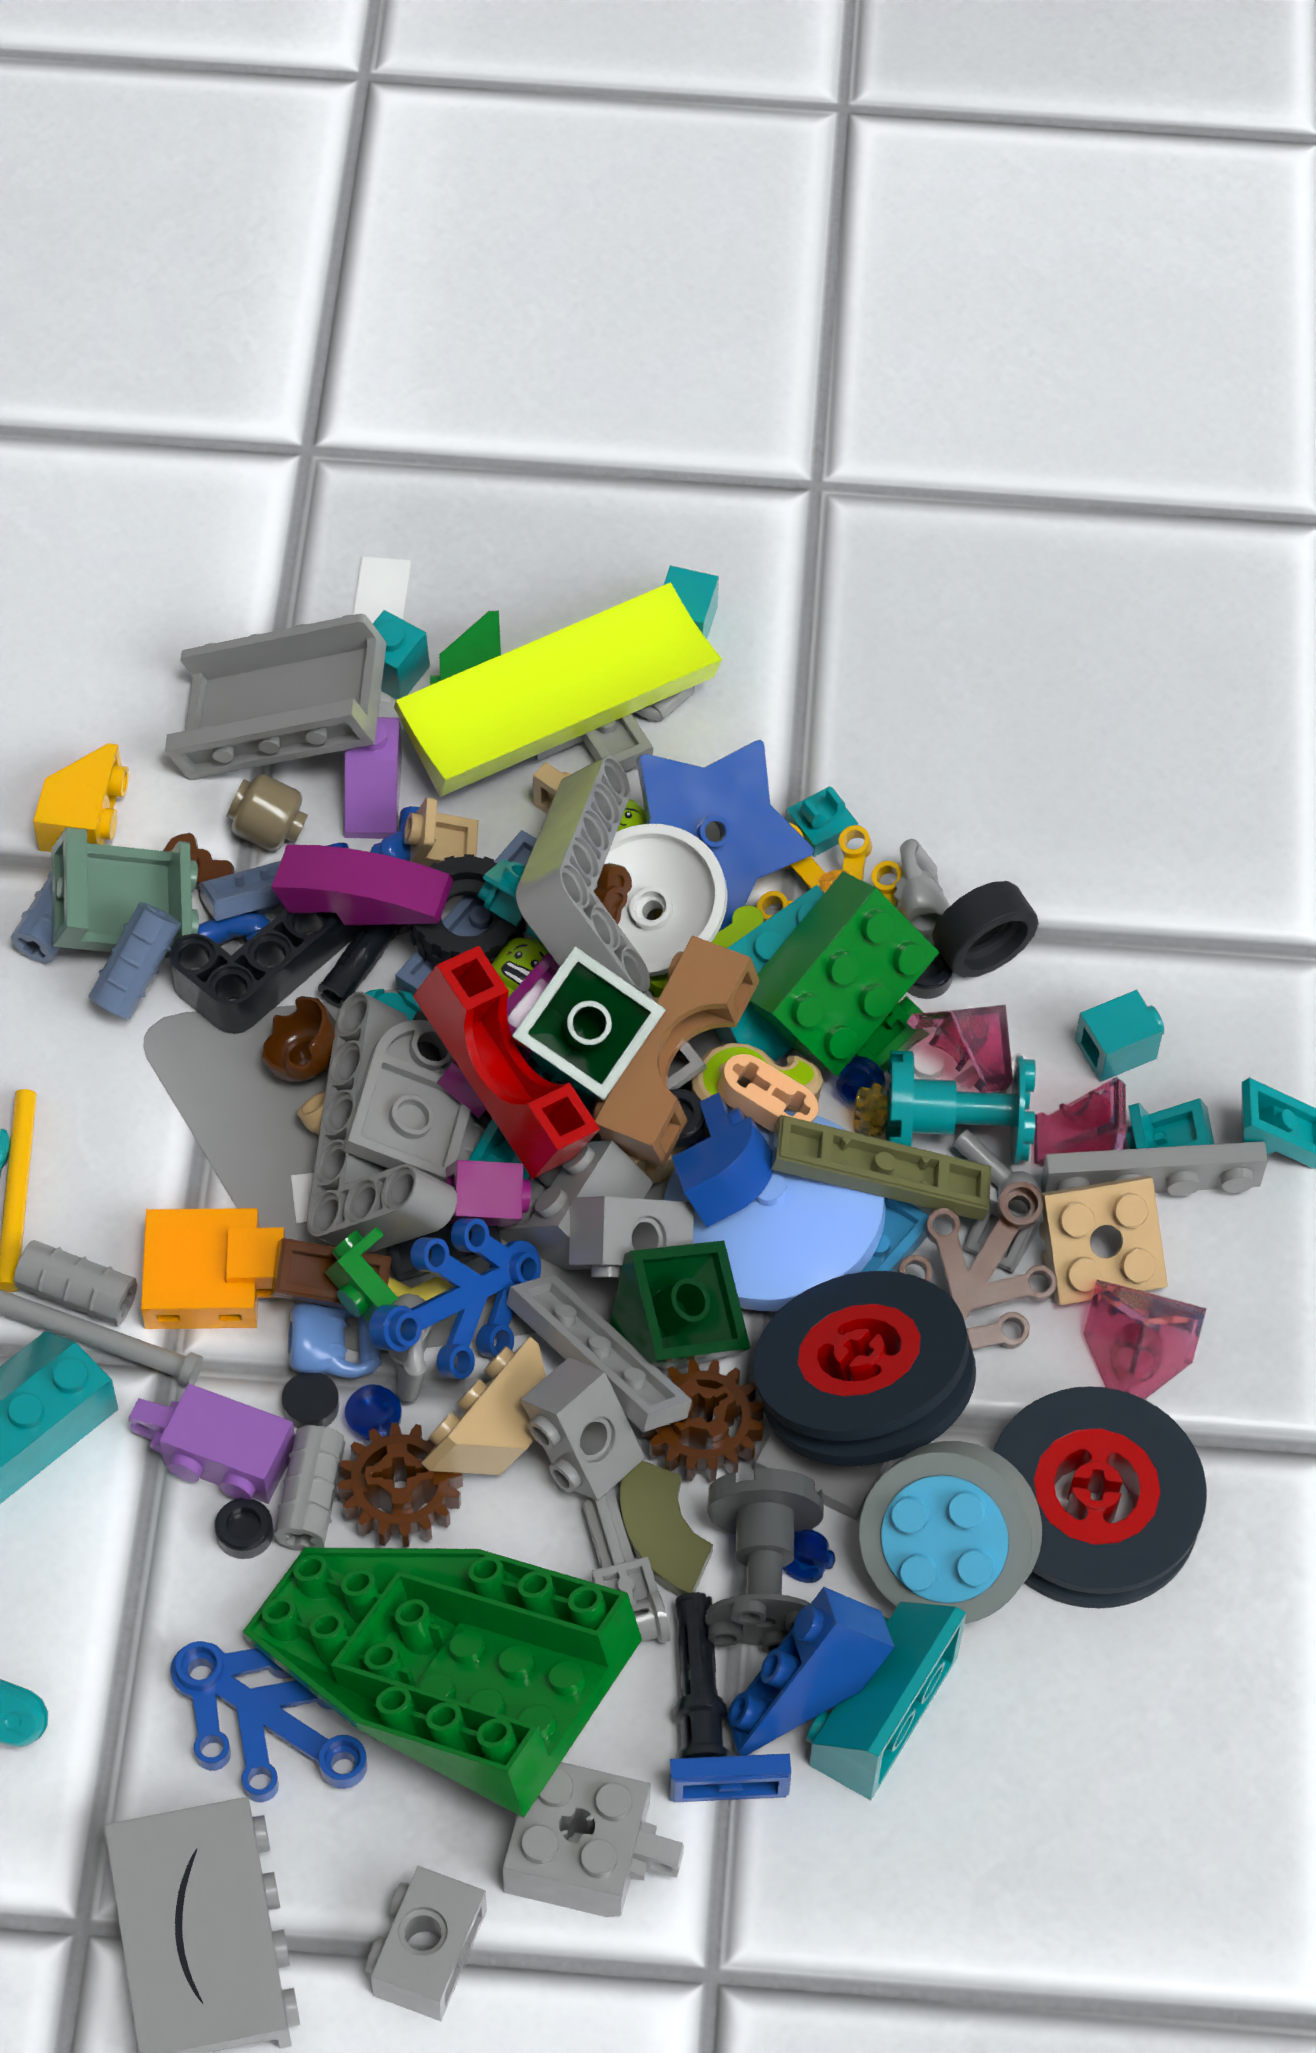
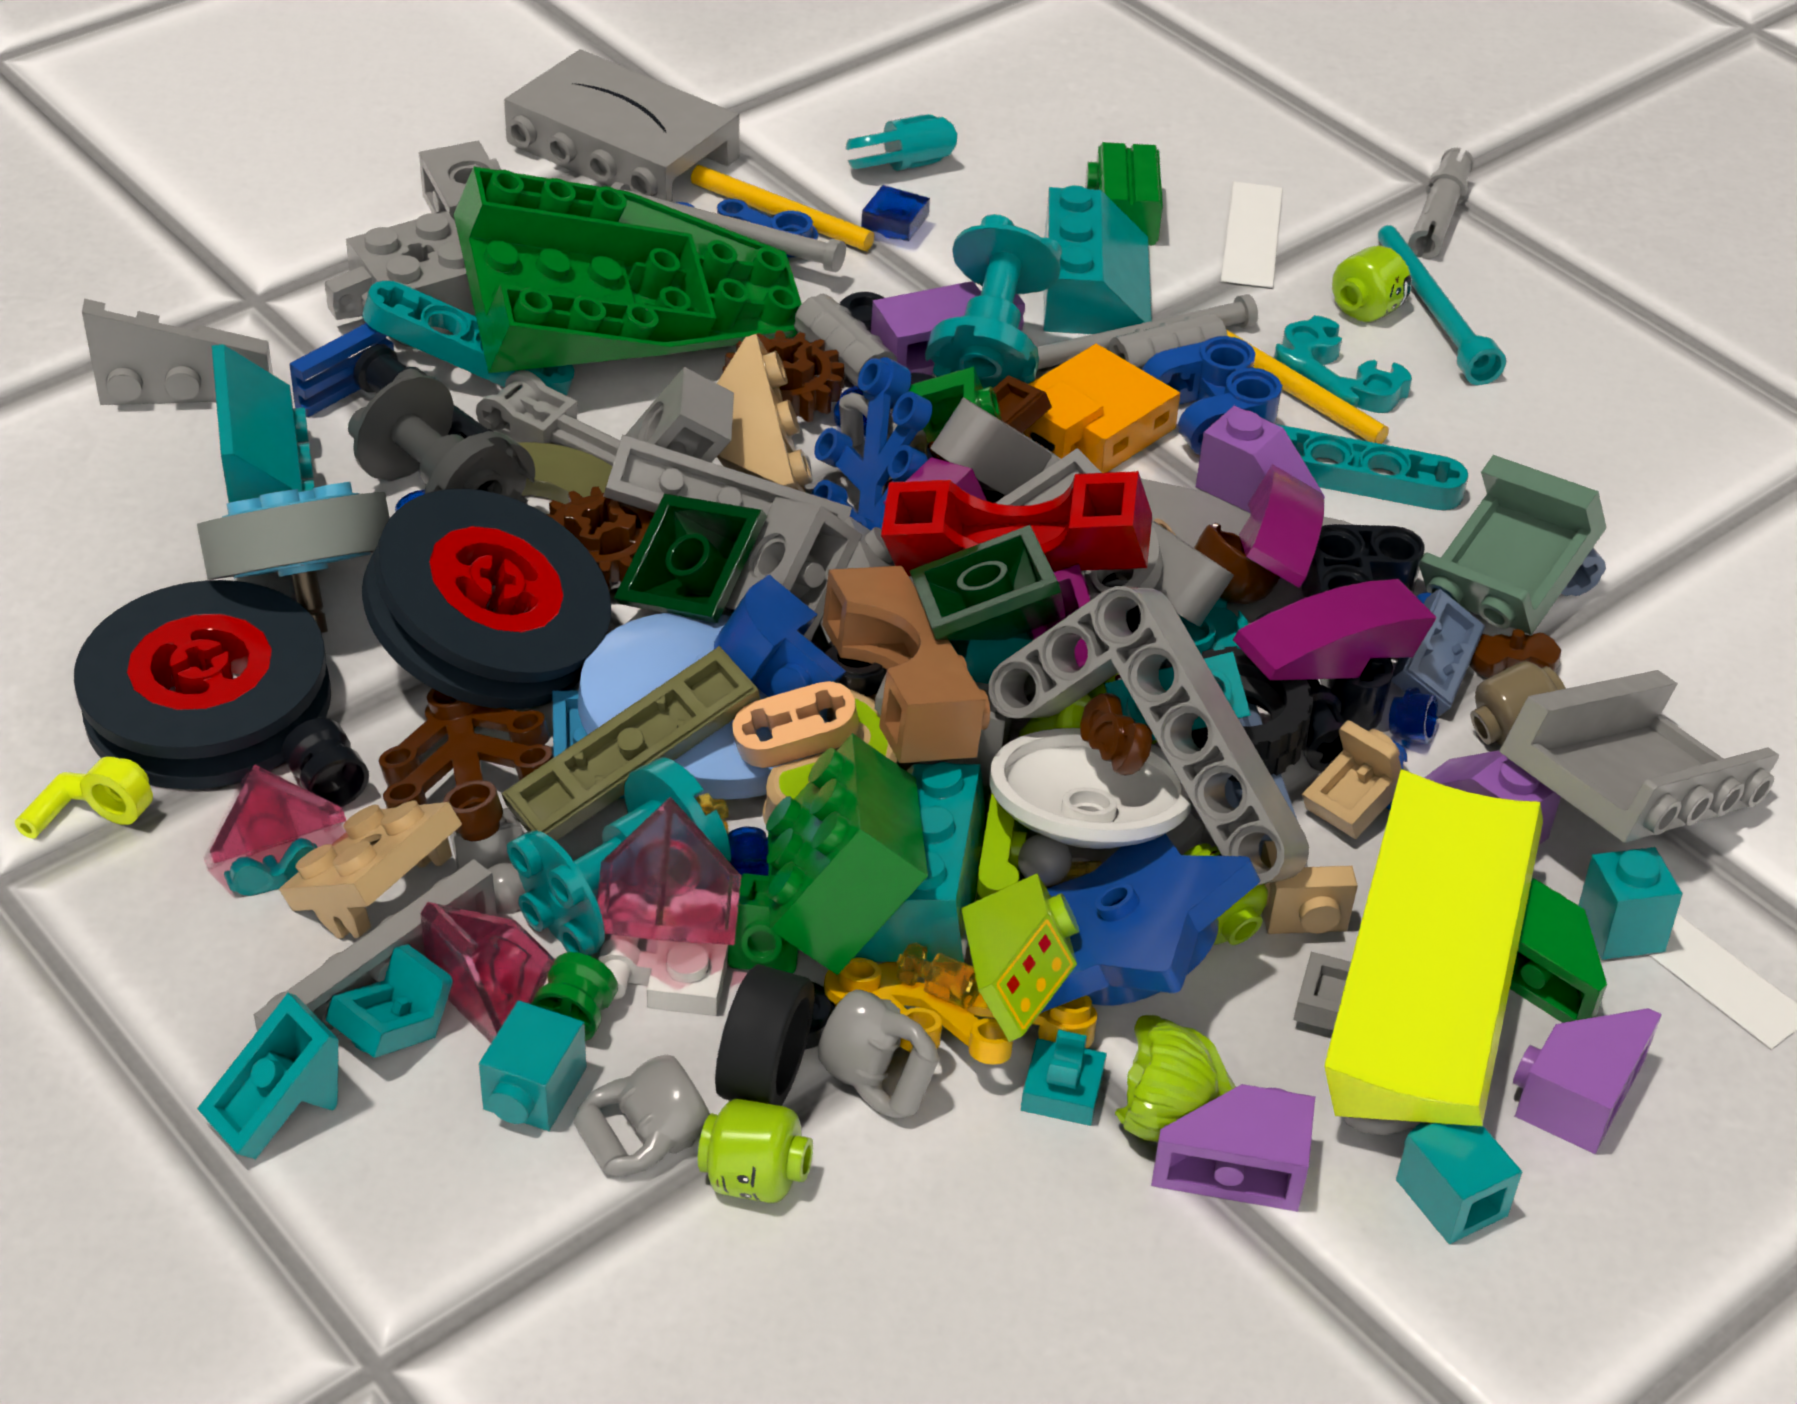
camera: 135 degrees right, 15 degrees down
(82, 798) = (1655, 613): yellow slope -> none
(88, 1620) = (895, 213): none -> clear blue plate
(89, 1079) = (1419, 480): none -> teal beam
(127, 1176) = (1216, 377): none -> blue piece
(134, 960) = (1435, 517): sand blue axle -> none
(159, 1712) = (774, 204): none -> yellow bar
(173, 1120) = (1240, 453): none -> medium lavender slope
(239, 1354) = (987, 336): none -> teal piece
(253, 1021) = (1283, 525): none -> magenta slope
(300, 1824) = (829, 254): none -> light grey bar
(541, 597) = (1584, 1075): none -> medium lavender slope
(636, 1744) = (409, 318): none -> teal beam
(778, 704) = (1240, 1148): none -> medium lavender slope
(793, 751) = (1170, 1076): none -> lime hair
(801, 850) = (1020, 950): none -> lime slope
(816, 1666) = (319, 404): blue slope -> none
(874, 1874) = (156, 362): none -> light grey wing
(1048, 891) = (754, 1151): none -> lime head
(1057, 1061) = (578, 989): none -> green wheel
(1065, 966) = (658, 1104): none -> light grey piece
(1066, 1354) = (325, 762): none -> black wheel
(1222, 1443) = (112, 788): none -> neon yellow plate

